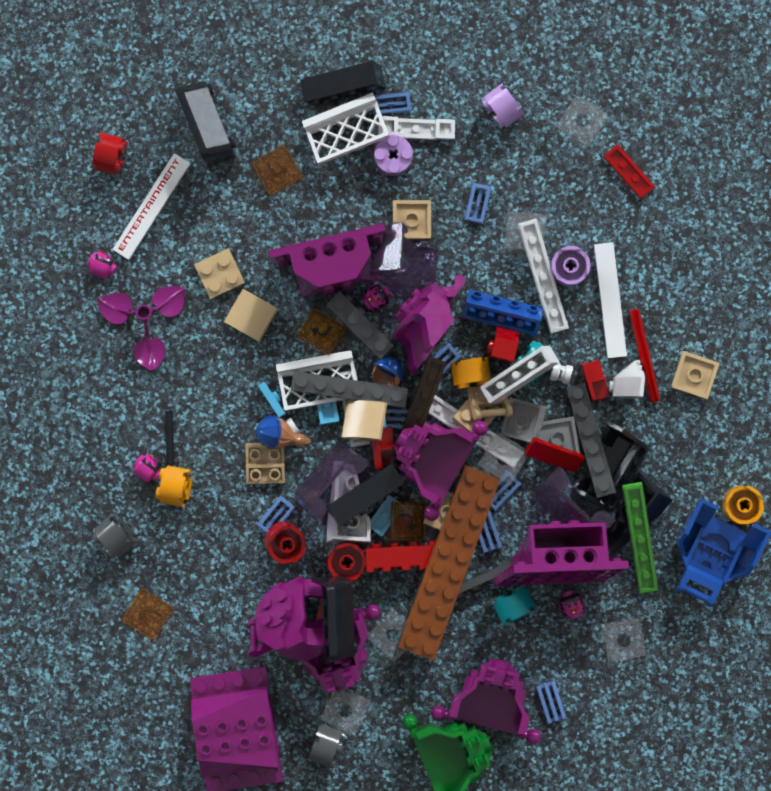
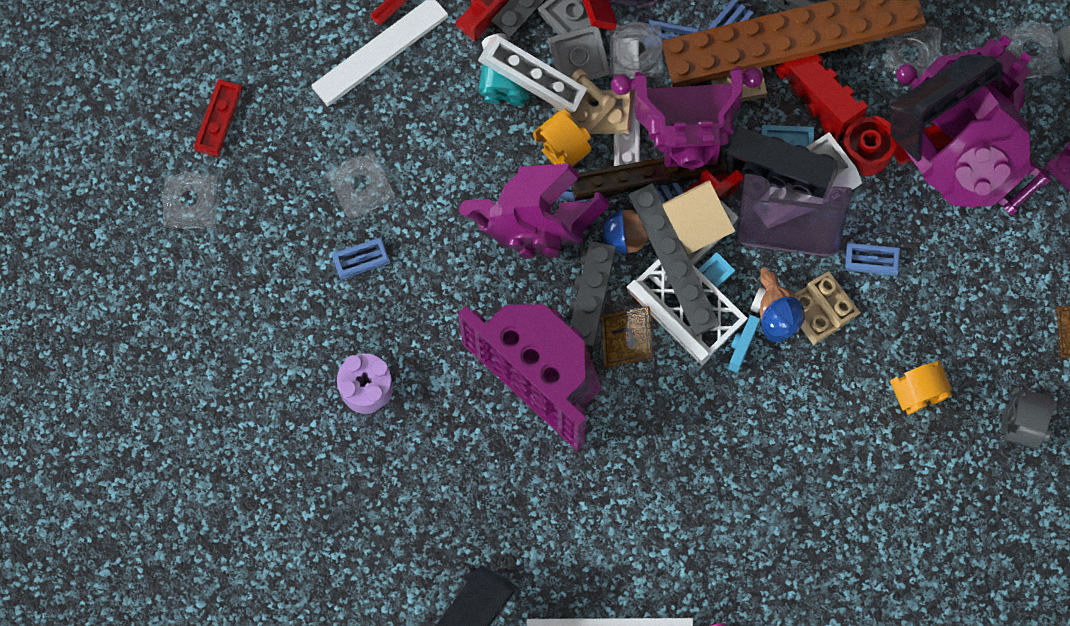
camera: 120 degrees left, 15 degrees down
(117, 306) = (710, 538): magenta plant -> none
(147, 468) = (922, 434): dark pink head -> none
(169, 438) = (870, 434): black bar -> none
(219, 273) = (637, 500): tan plate -> none
(251, 315) = (662, 429): tan slope -> none
(277, 170) = (467, 512): clear orange piece -> none
(284, 553) = (896, 223): red brick -> none
(337, 116) = (355, 473): white fence -> none
(343, 83) = (315, 495): black wedge -> none
(376, 297) = (547, 295): head -> none
(388, 104) = (316, 446): medium blue tile -> none
(403, 263) = (483, 281): clear purple windscreen -> none
(407, 520) = (776, 110): clear orange piece -> none
(414, 215) = (427, 318): tan plate -> none
(419, 128) = (314, 377): white slope -> none
(502, 312) = (471, 149): blue brick -> none
(503, 105) = (227, 293): lavender brick -> none
(503, 346) = (507, 123): red wedge -> none
(543, 276) = (399, 133): white tile -> none
(577, 258) = (382, 113): lavender brick -> none

